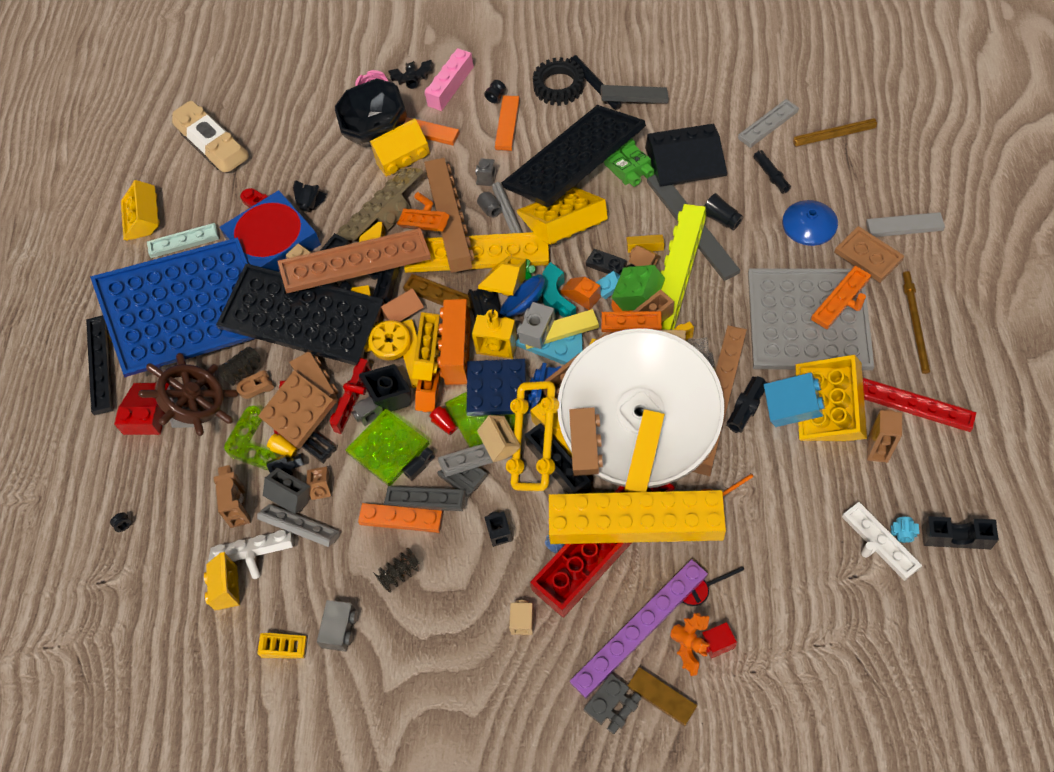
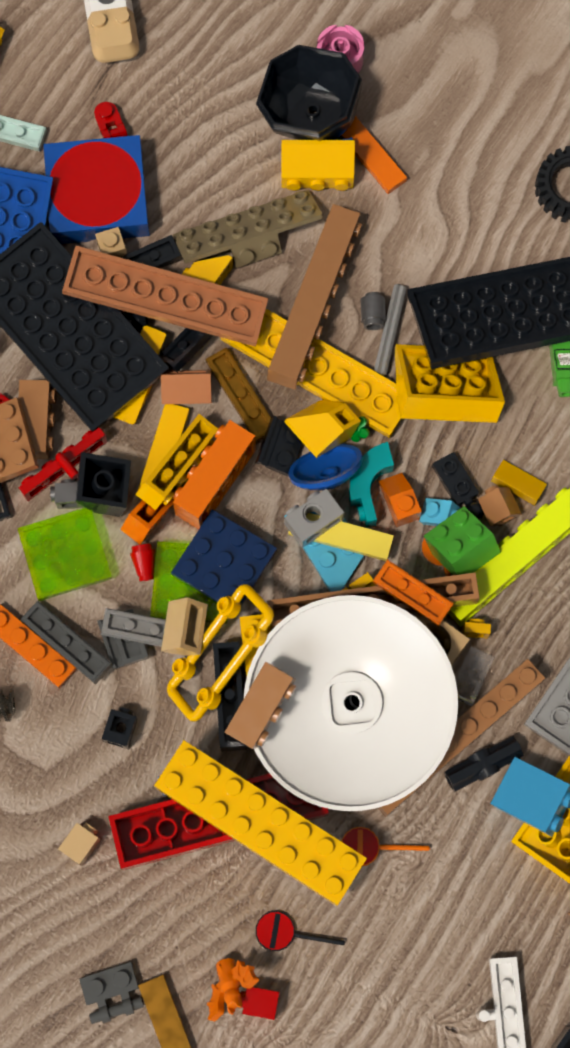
camera: 25 degrees right, 15 degrees up
(308, 196) = (170, 162): black brick -> none
(393, 330) = (133, 414): yellow wheel -> none
(411, 75) = (401, 56): black animal -> none
(418, 464) = (85, 596): black bar -> none
(423, 218) = (279, 288): orange plate -> none
(449, 79) = (442, 95): bright pink brick -> none
(485, 172) = (397, 263): flat silver brick -> none
(494, 335) = (262, 497): yellow brick -> none
(495, 91) = (486, 149): black wheel -> none
(507, 123) = (472, 204): orange tile -> none
(540, 375) = (276, 584): blue plate -> none
(638, 629) = (192, 934): medium lavender plate -> none
(644, 451) = (318, 758): yellow tile -> none
(905, 529) = (541, 1019): medium azure gear -> none

